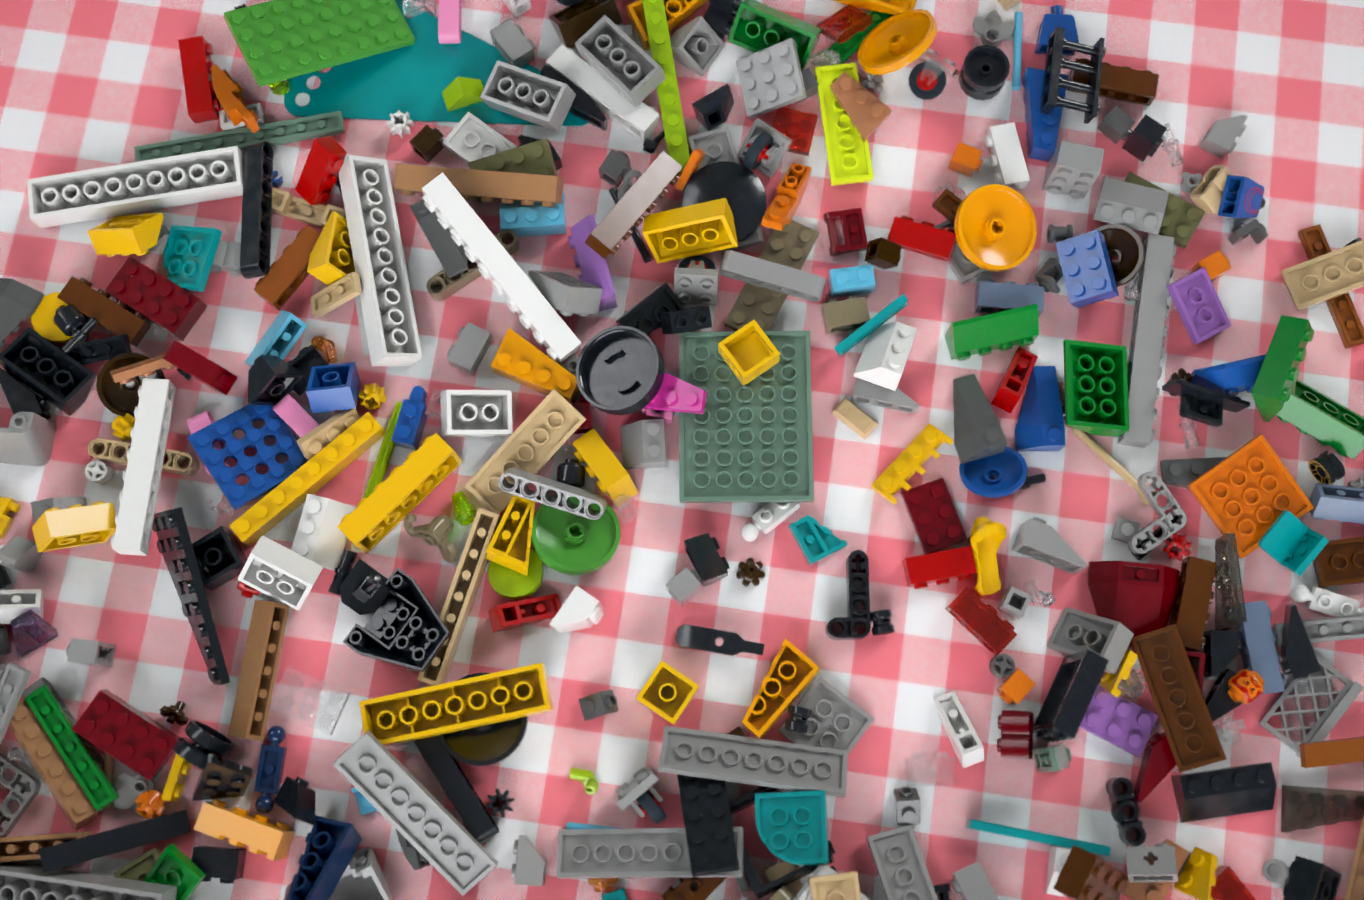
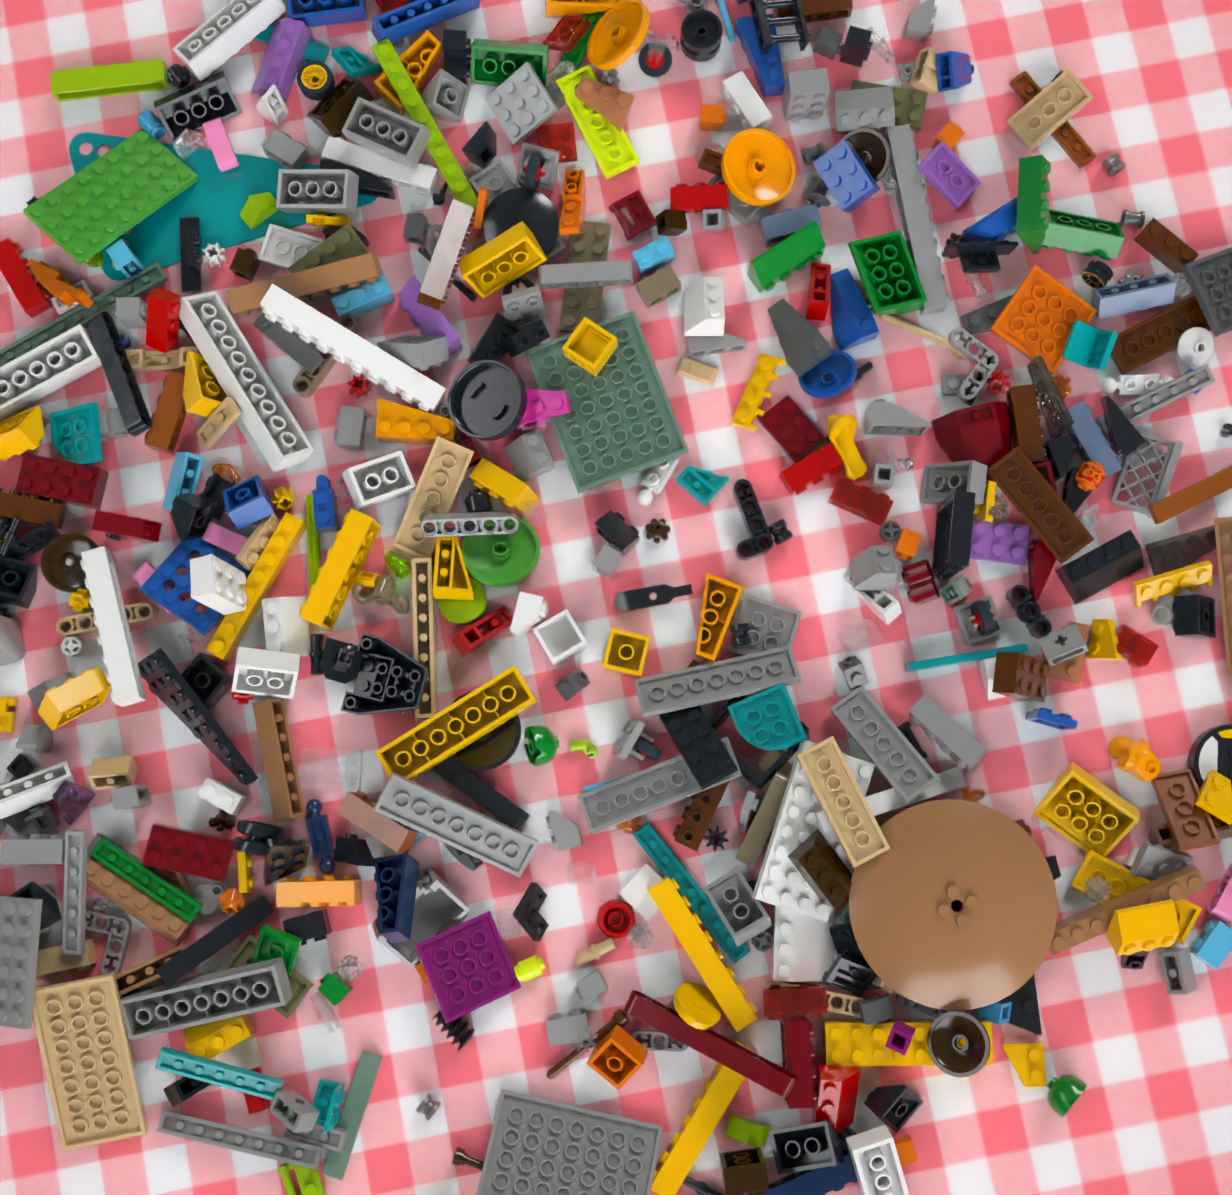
camera: 20 degrees left, 5 degrees up
(84, 619) = (112, 772): none -> tan brick
(143, 368) = (79, 544): nougat plate -> none
(185, 687) = (222, 796): none -> white brick
(265, 462) = (217, 584): none -> white brick
(292, 151) = (131, 312): none -> light grey brick
(308, 96) = (124, 258): none -> medium azure brick
(318, 756) = (361, 812): none -> brick
(376, 115) = (190, 254): none -> black bracket
(425, 512) = (366, 578): none -> yellow tile
(490, 304) = (359, 380): none -> red gear
(503, 797) = (527, 793): black gear -> none
(524, 127) = (324, 220): none -> yellow wing
(539, 759) = (541, 745): none -> green cylinder
(603, 649) = (560, 636): none -> white piece
(871, 325) = (683, 287): teal tile -> none
(929, 266) = (714, 220): none -> light grey brick
(969, 701) = (874, 569): none -> light grey slope
(1066, 800) = (978, 620): none -> light grey plate
(1247, 574) = (1062, 385): none -> clear orange plant
(1253, 228) = (972, 93): dark grey bracket -> none
(1299, 838) = (1172, 581): none -> yellow hinge

